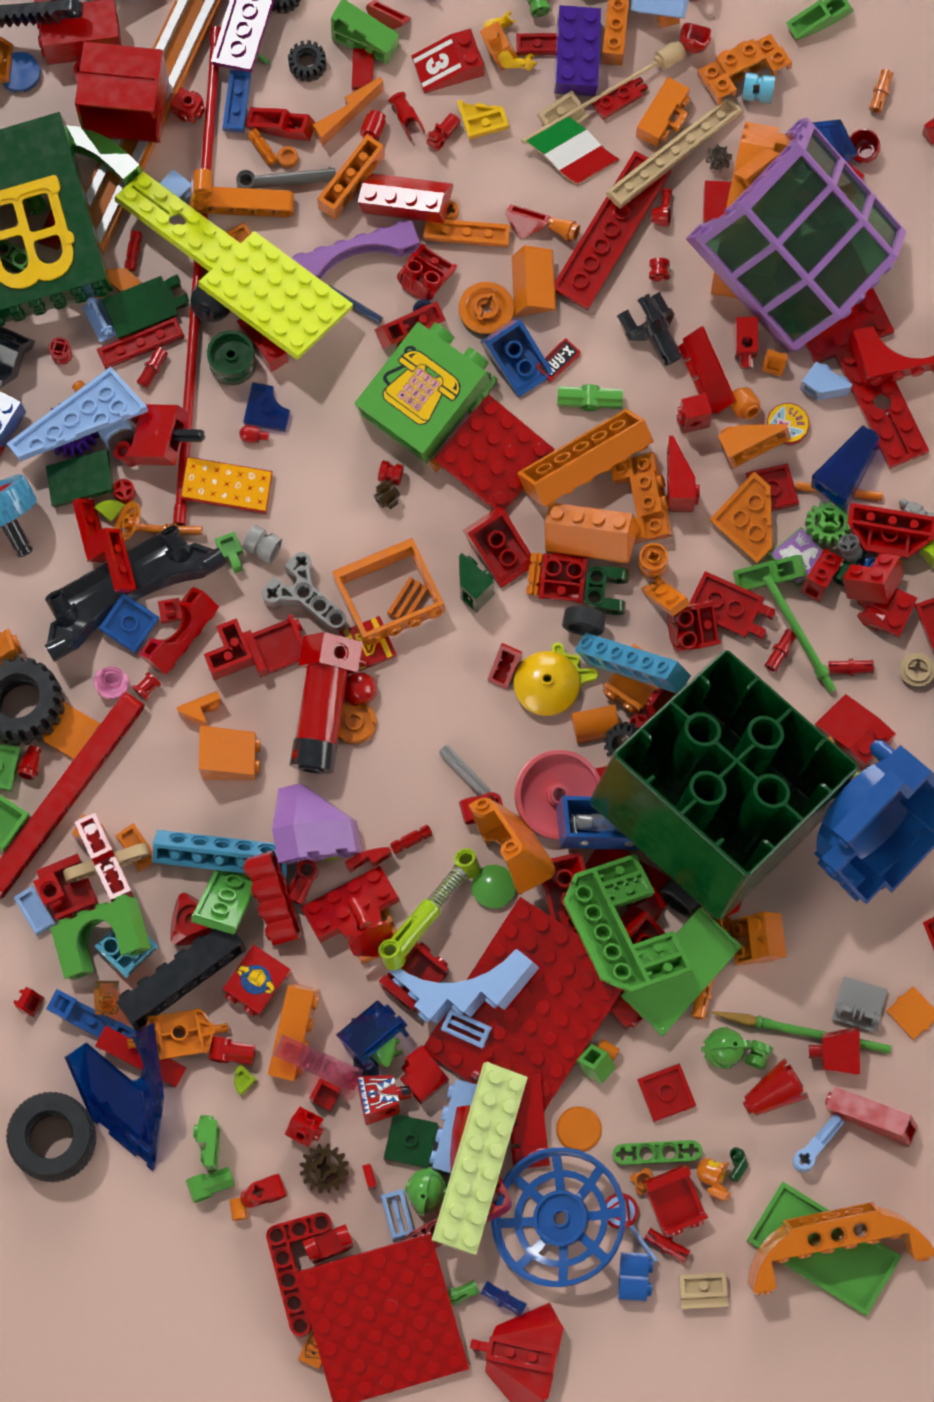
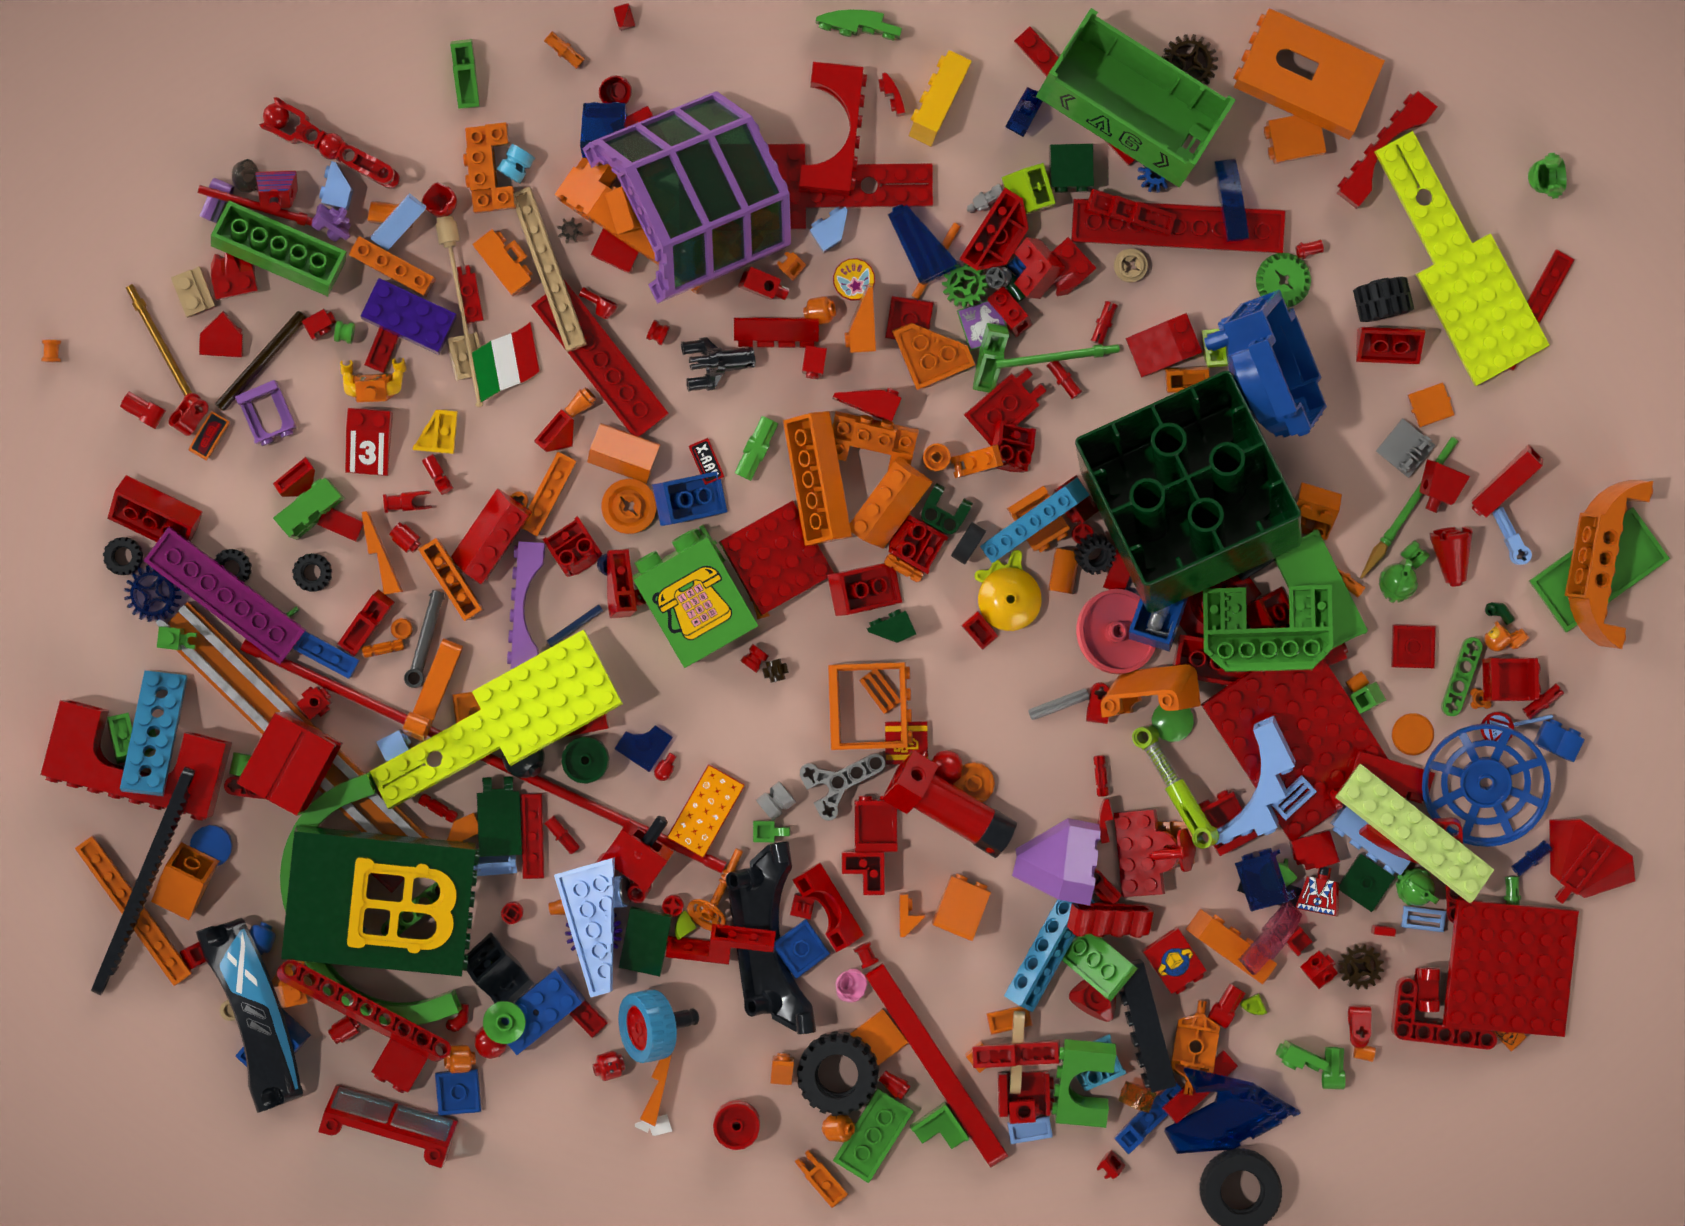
camera: 70 degrees left, 15 degrees up
(703, 1291) = (1594, 687): tan plate -> none

